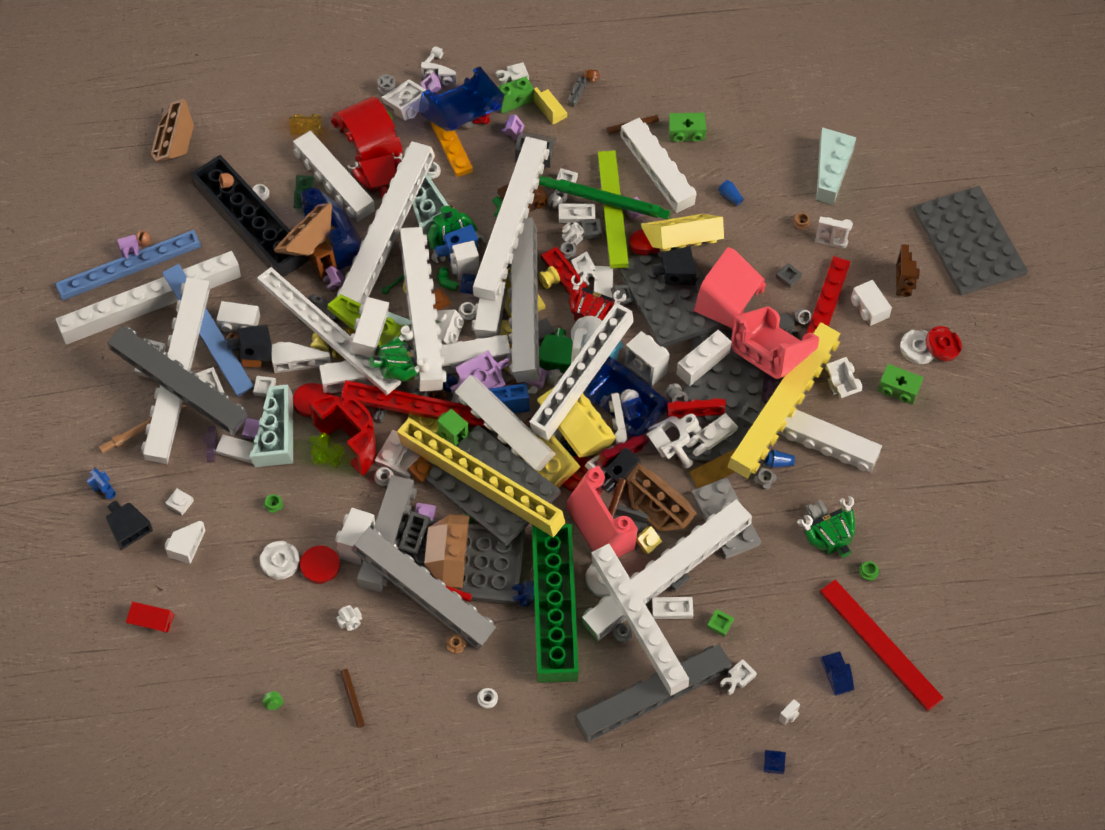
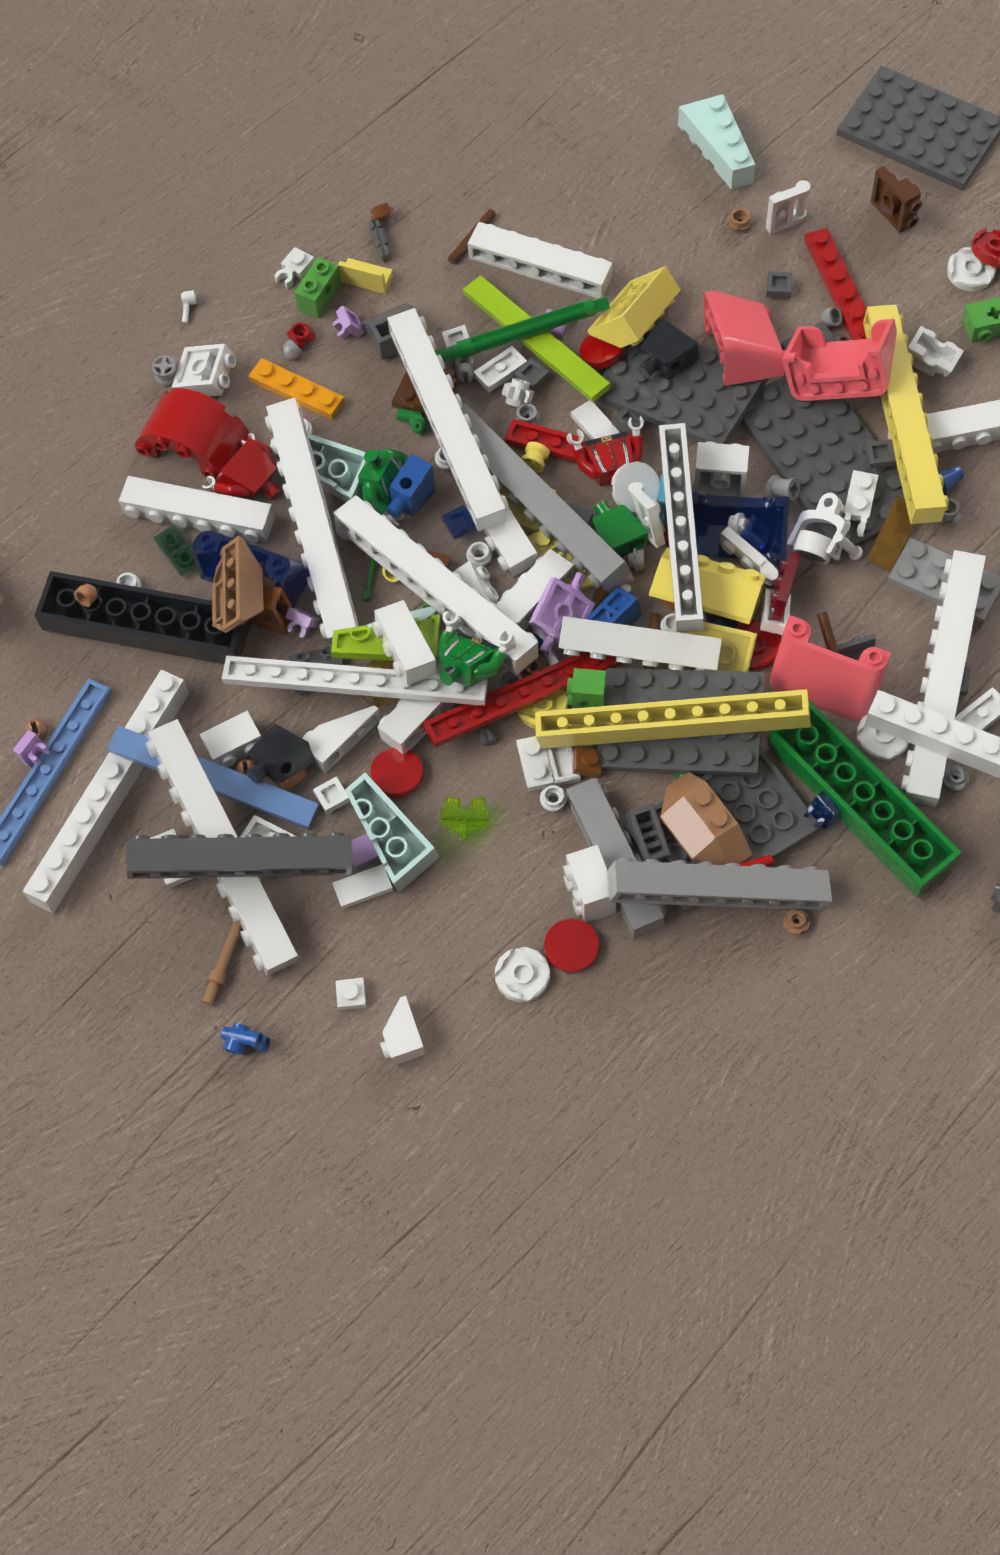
camera: 30 degrees left, 5 degrees up
(127, 524) = (315, 1063): black torso -> none
(150, 617) = (439, 1148): red hinge -> none
(210, 440) = (325, 898): plate -> none
(272, 700) = (660, 1135): bright green plate -> none
(273, 498) = (459, 910): bright green plate -> none
(302, 124) = (113, 474): clear yellow hips -> none
(319, 343) = (350, 703): light yellow wheel -> none
(349, 618) = (660, 979): white gear -> none
(352, 698) = (740, 1065): reddish brown bar -> none
(353, 417) = (476, 759): red cylinder -> none
(425, 509) = (630, 802): lavender plate -> none
(431, 82) = (215, 334): lavender plate -> none
(444, 281) = (426, 540): green arm -> none
(446, 75) = (220, 316): white slope -> none
(462, 104) = (274, 330): clear blue windscreen -> none
(464, 259) = (432, 499): white brick -> none
(487, 692) = (883, 946): white plate -> none
(584, 267) = (562, 419): white plate -> none
(619, 468) = (805, 599): black torso -> none
(648, 540) = (897, 661): light yellow plate -> none
(658, 500) = (871, 611): medium nougat wedge -> none
(687, 127) = (534, 200): bright green brick -> none
(698, 408) = (820, 485): red plate -> none
(703, 357) = (780, 427): white brick -> none
(730, 192) = (641, 239): blue cone -> none
(770, 385) = (868, 411): plate -> none
(871, 303) = (887, 255): white brick -> none

